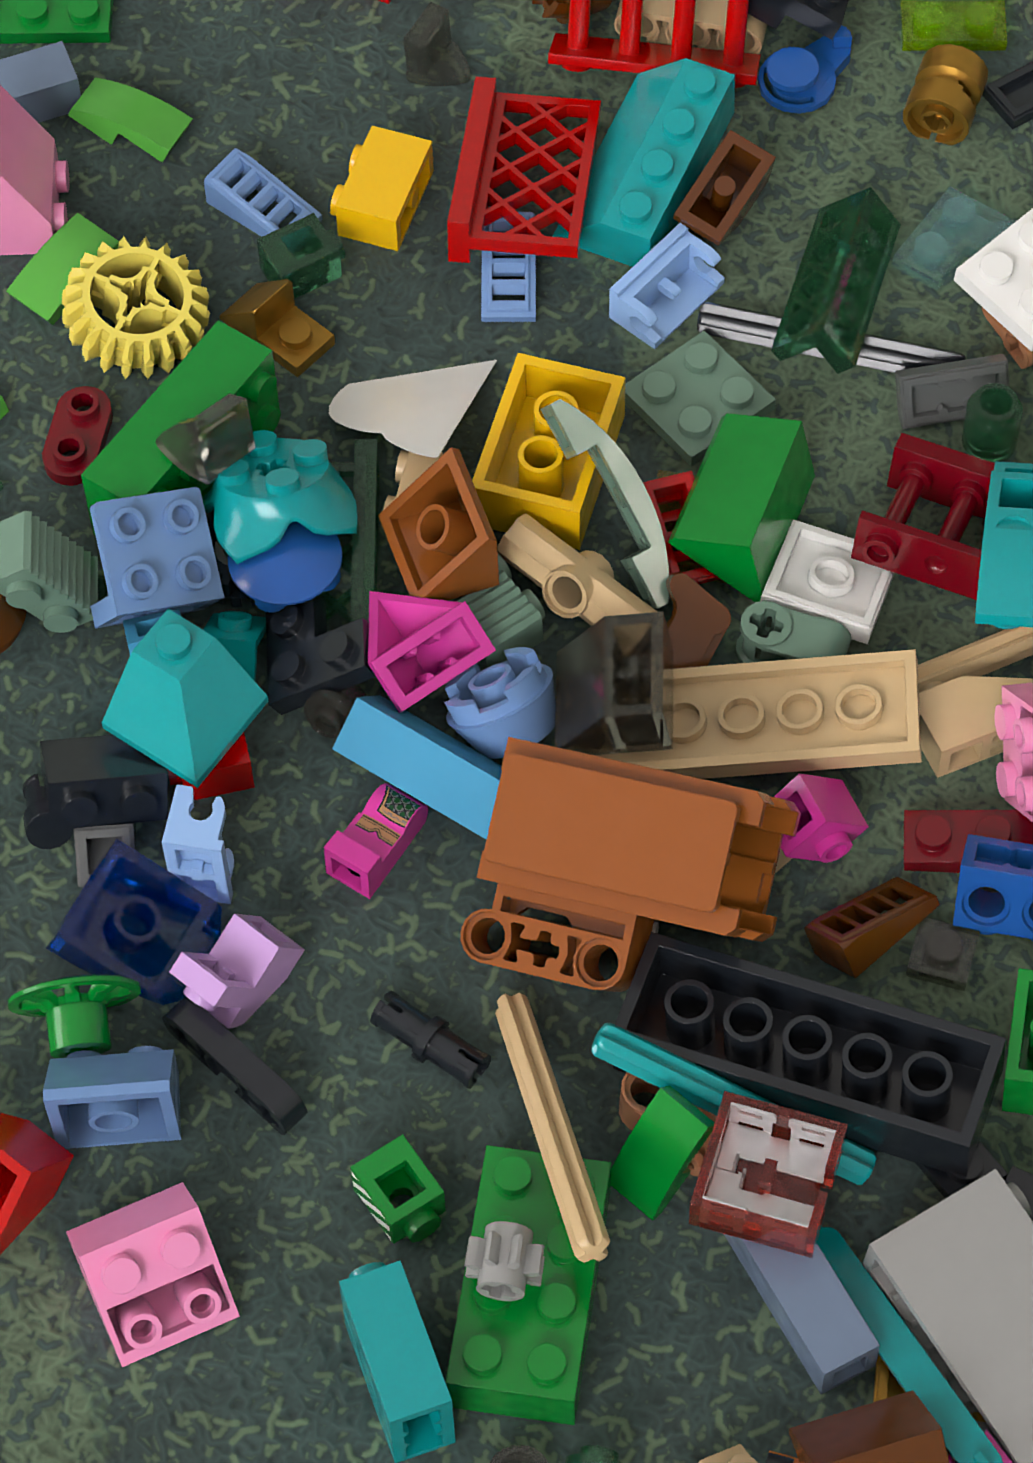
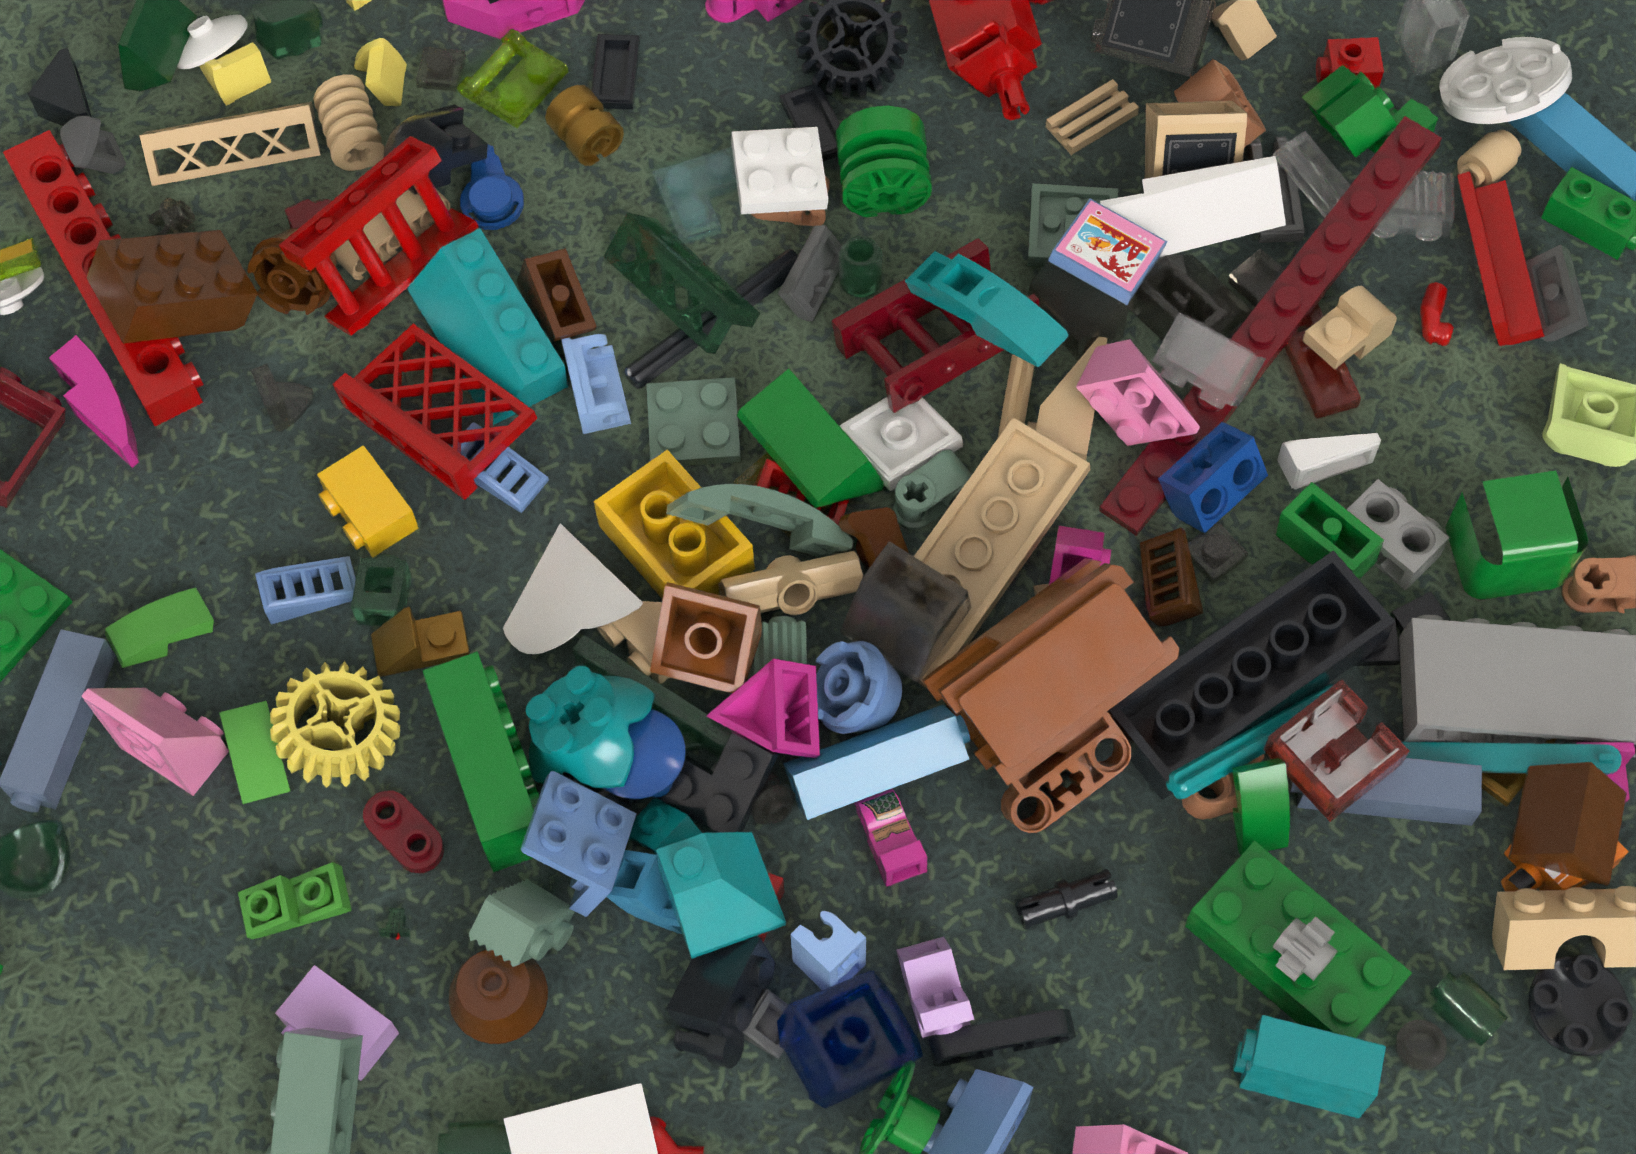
camera: 55 degrees left, 5 degrees up
(210, 440) = (533, 741): clear smoke tile -> none
(395, 1172) = (1187, 974): green brick -> none
(552, 1129) = (1210, 859): tan axle -> none

